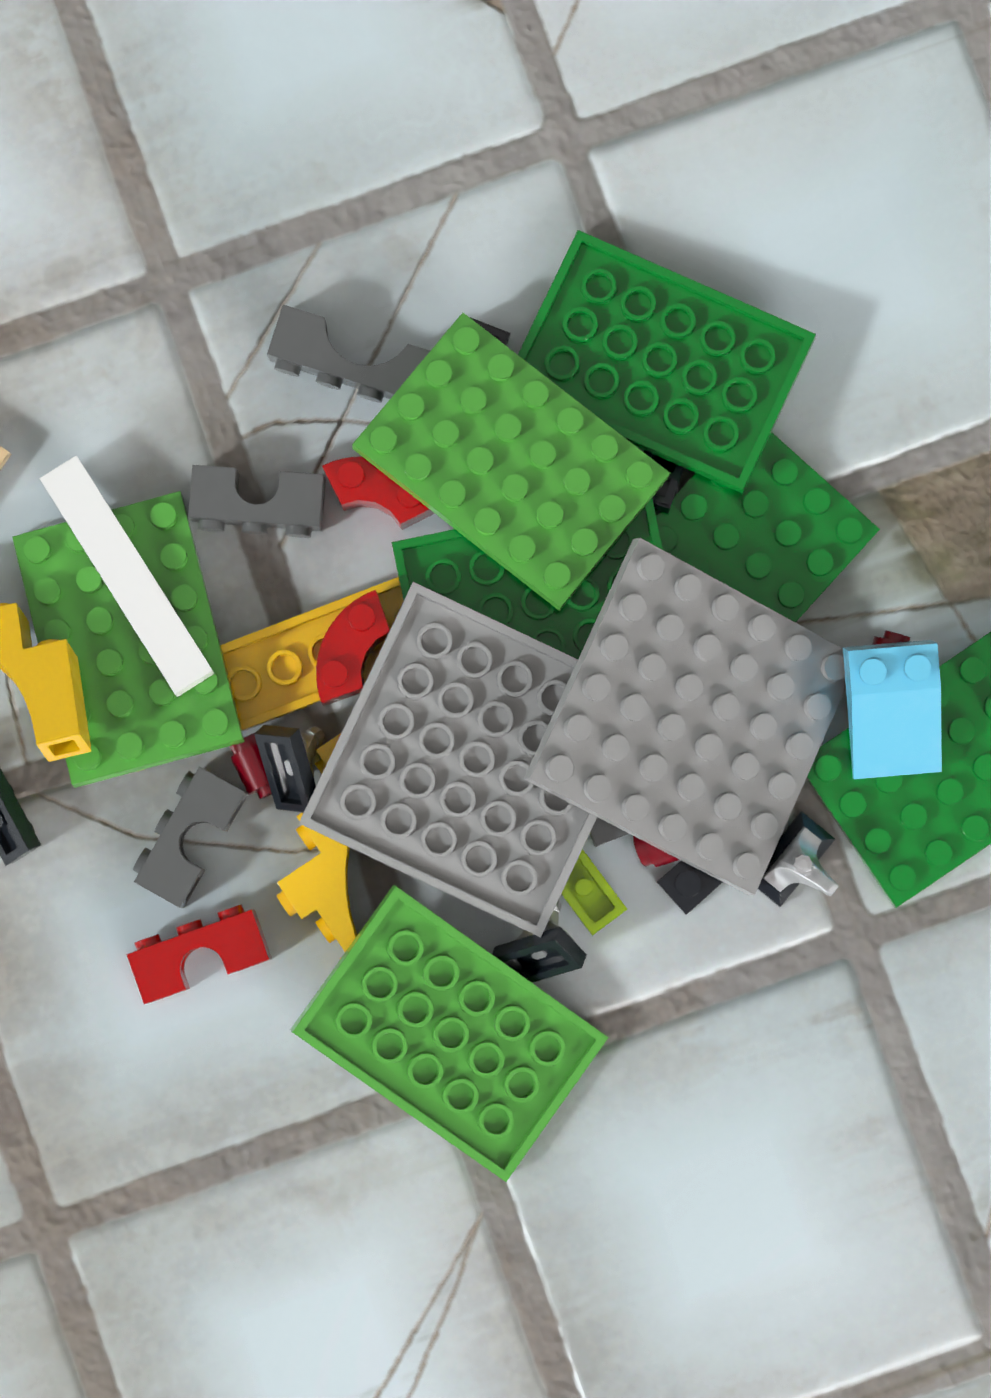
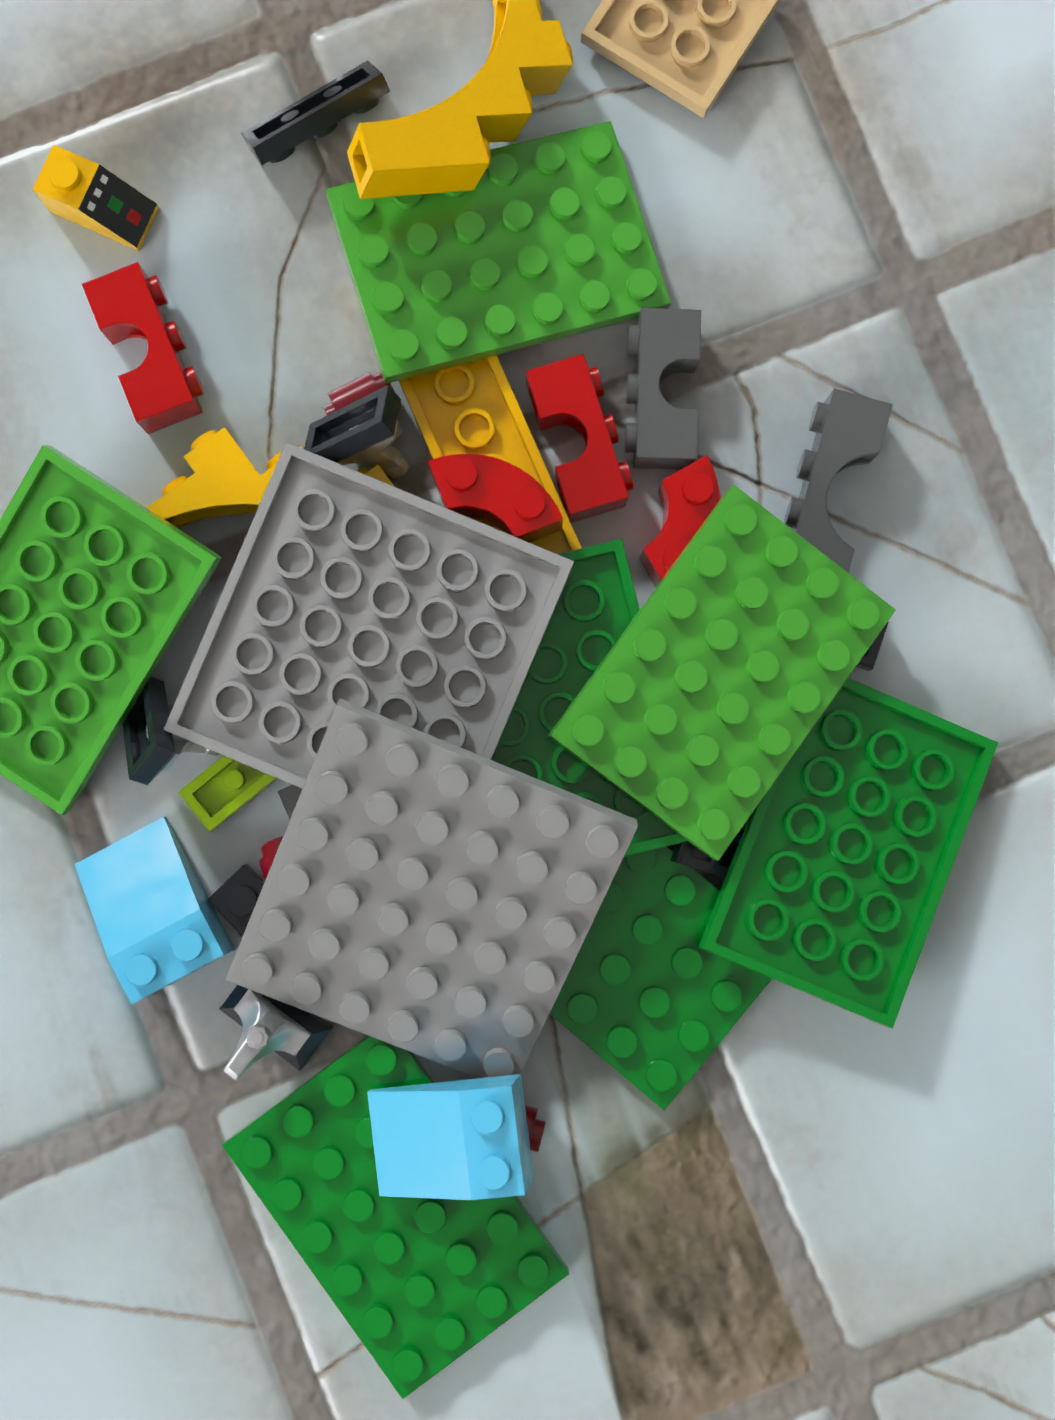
camera: 80 degrees right, 0 degrees up
(62, 994) = (94, 198): none -> slope
(127, 576) = (567, 241): white tile -> none
(166, 867) = (241, 309): dark grey arch -> none
(259, 581) = (568, 396): none -> red arch
(692, 962) = (151, 910): none -> medium azure slope

